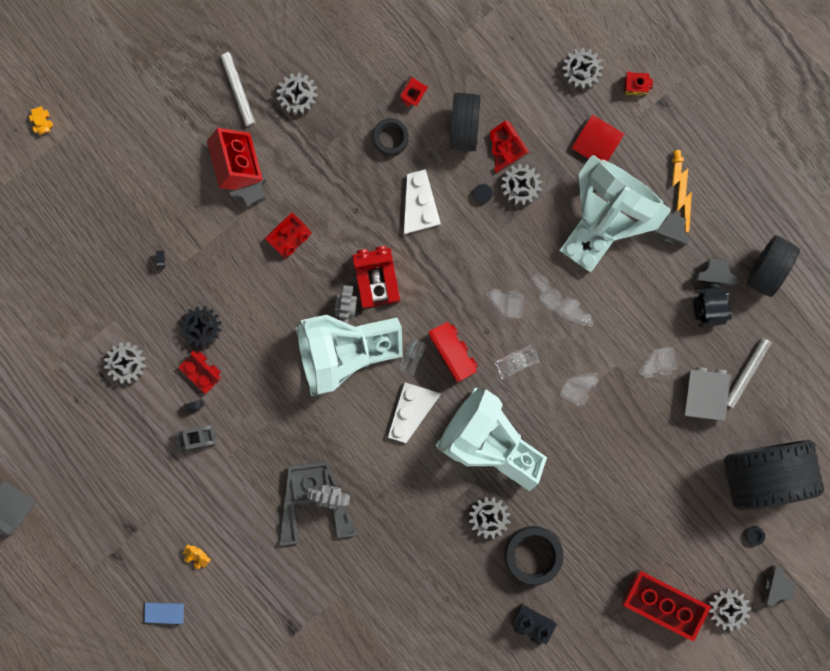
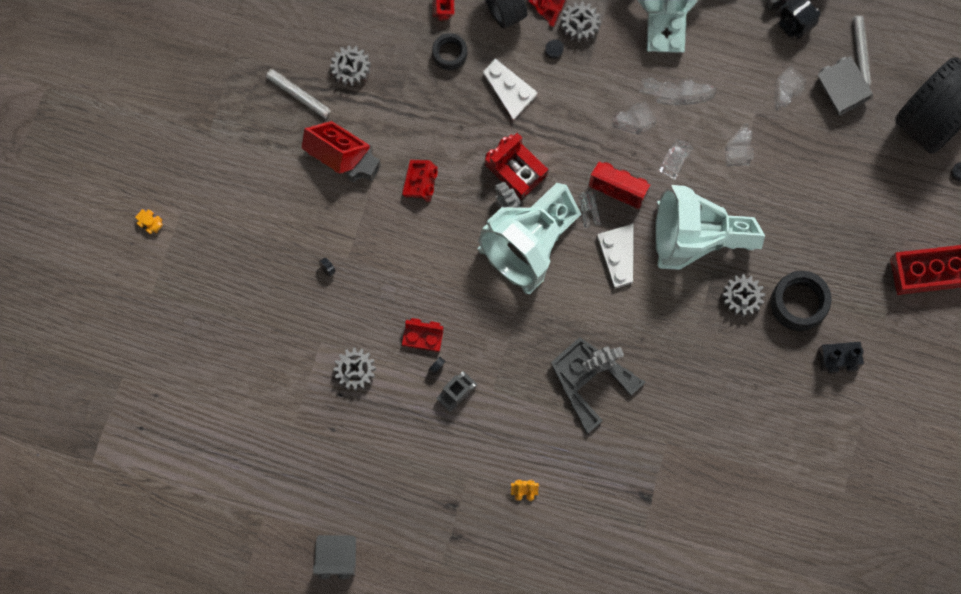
camera: 35 degrees left, 10 degrees down
(164, 613) = (530, 555): medium blue slope -> none
(198, 314) = (393, 303): black gear -> none

